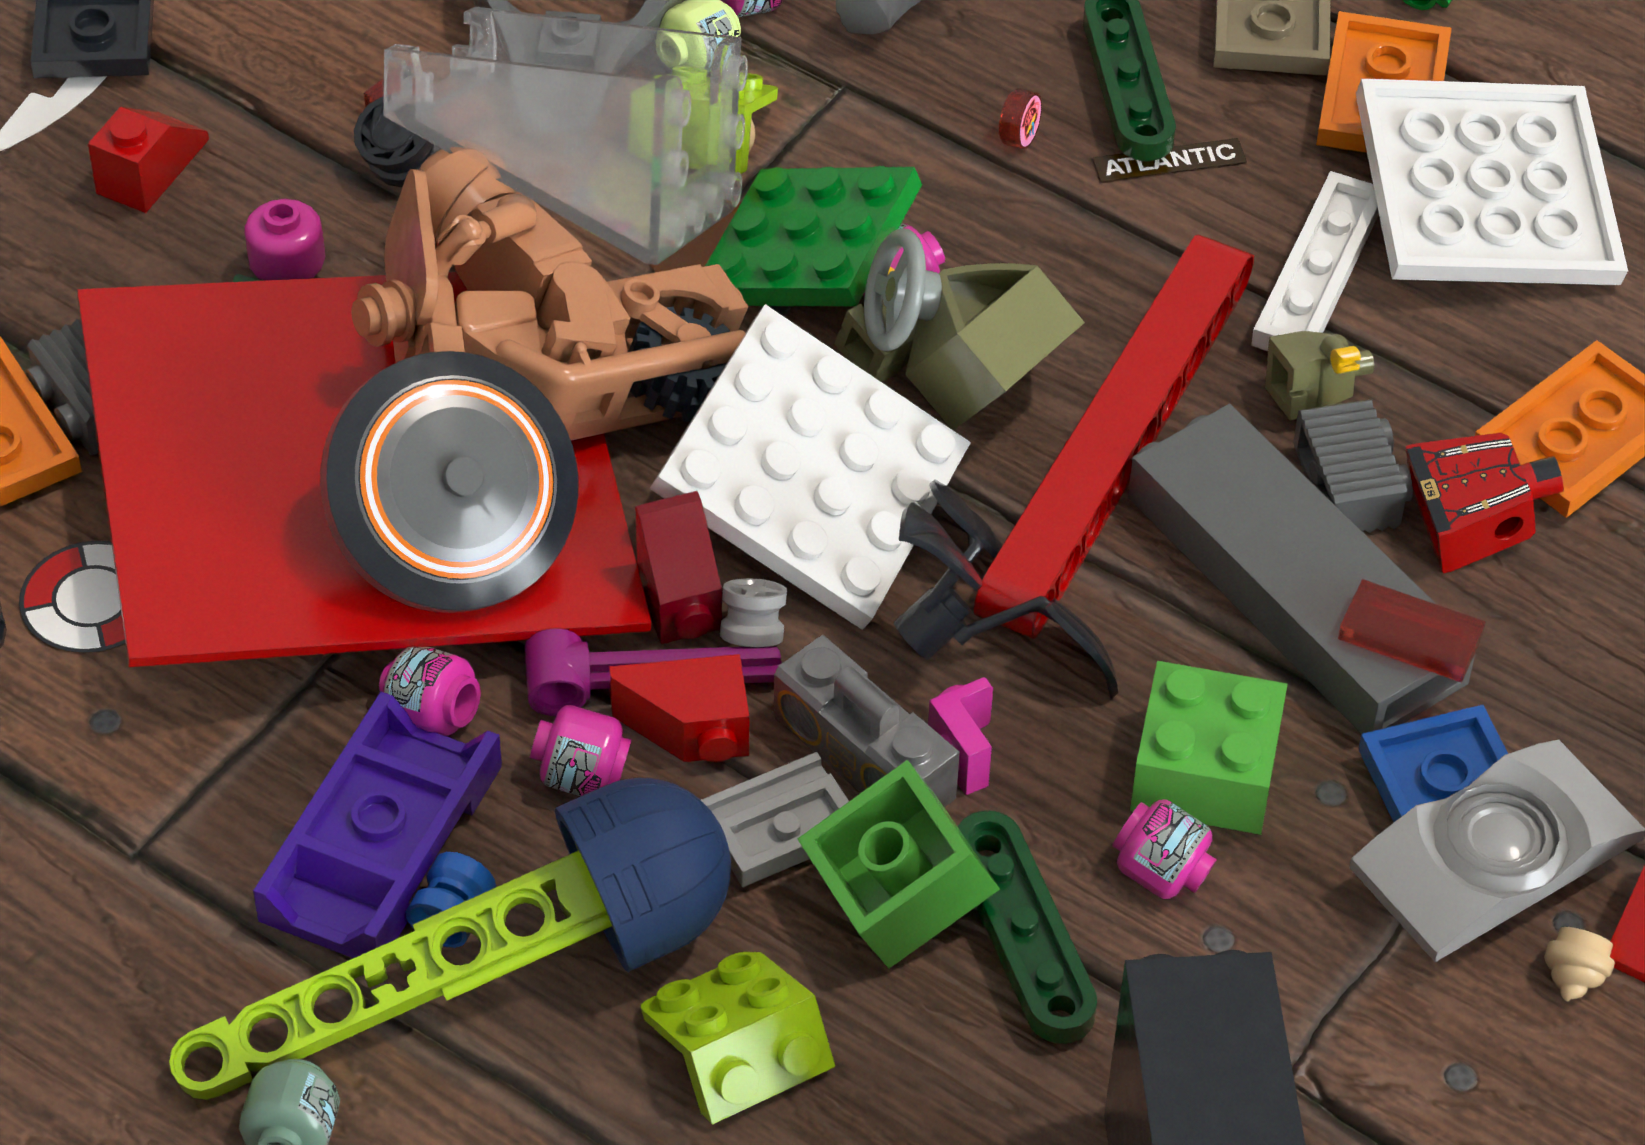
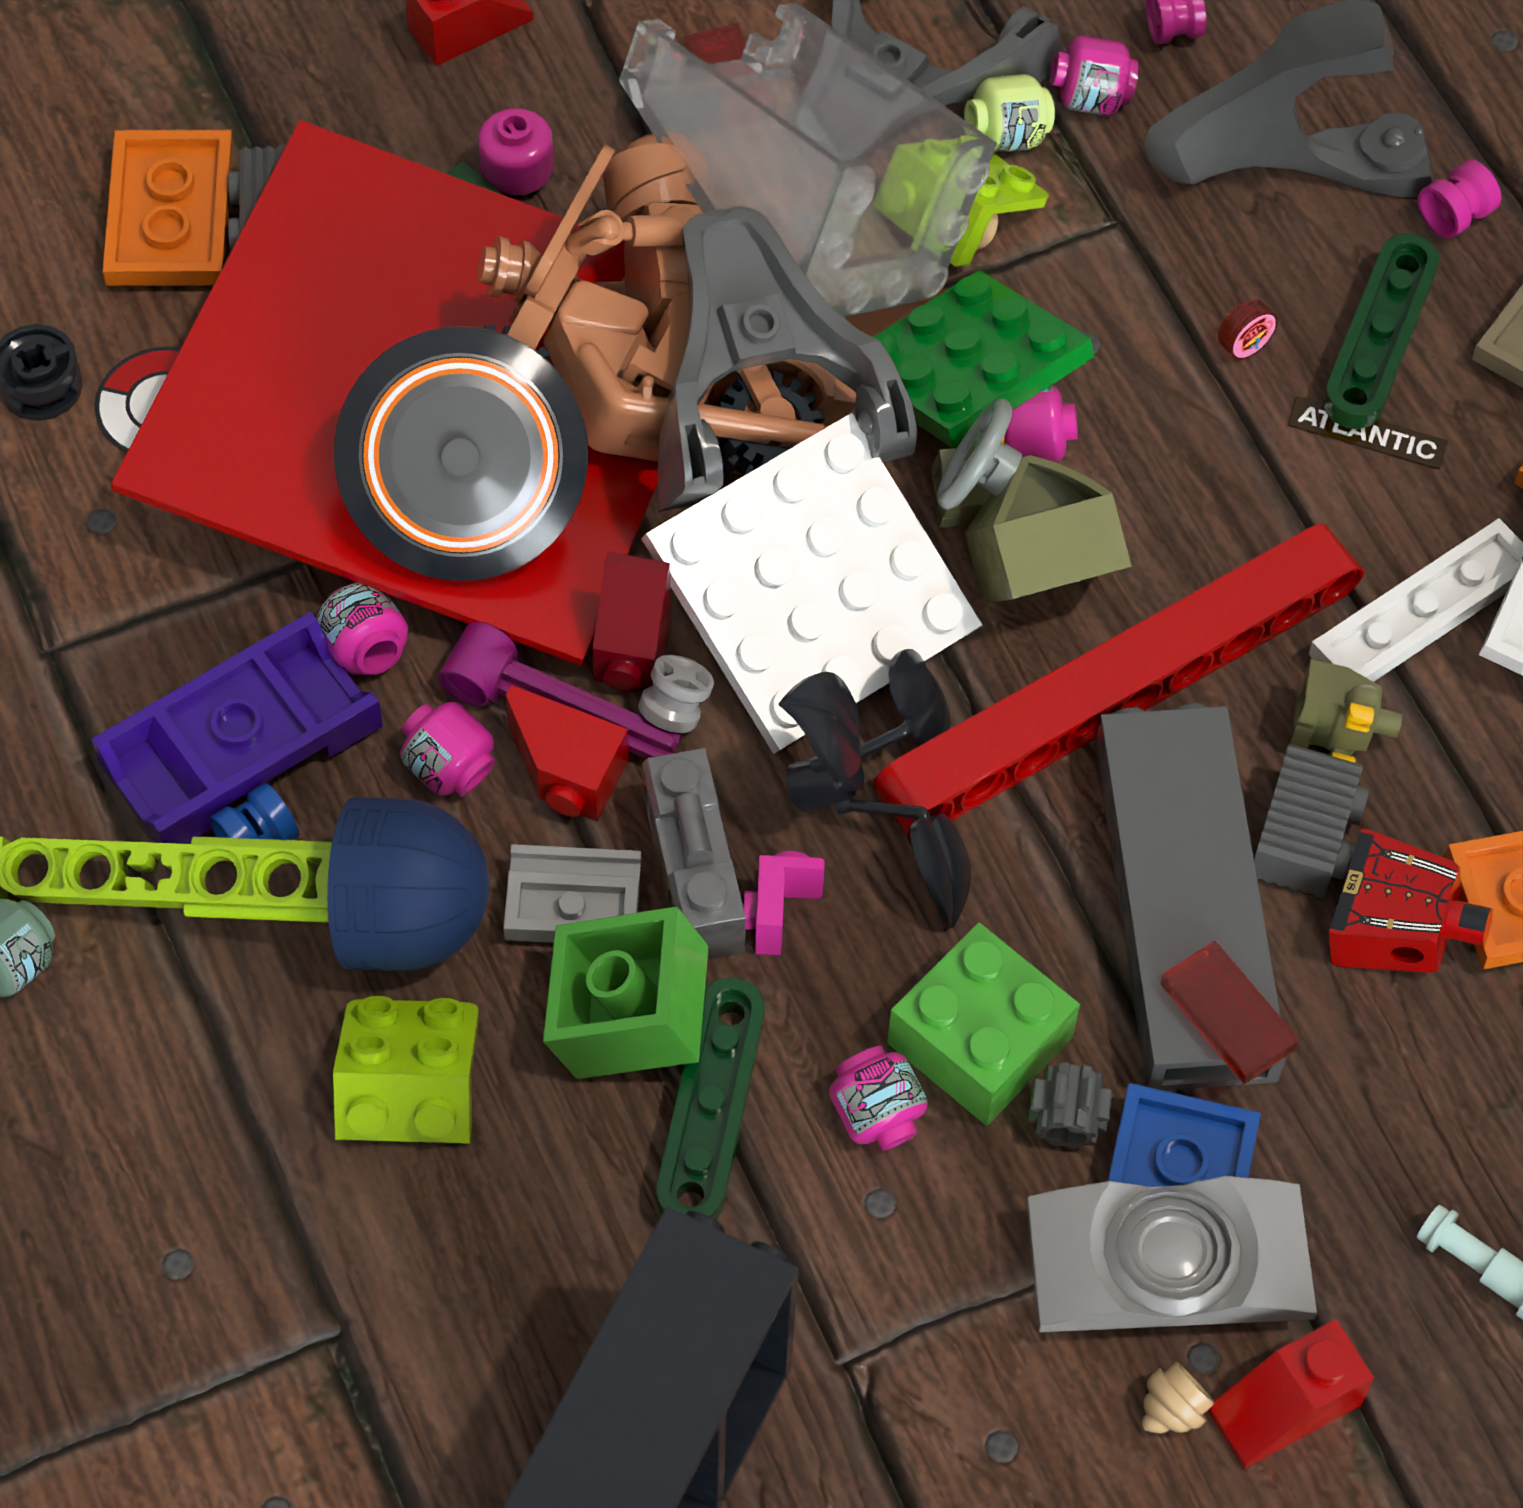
camera: 30 degrees right, 10 degrees up
(643, 248) = (758, 310): none -> dark grey animal
(1327, 775) = (1070, 1105): none -> dark grey gear

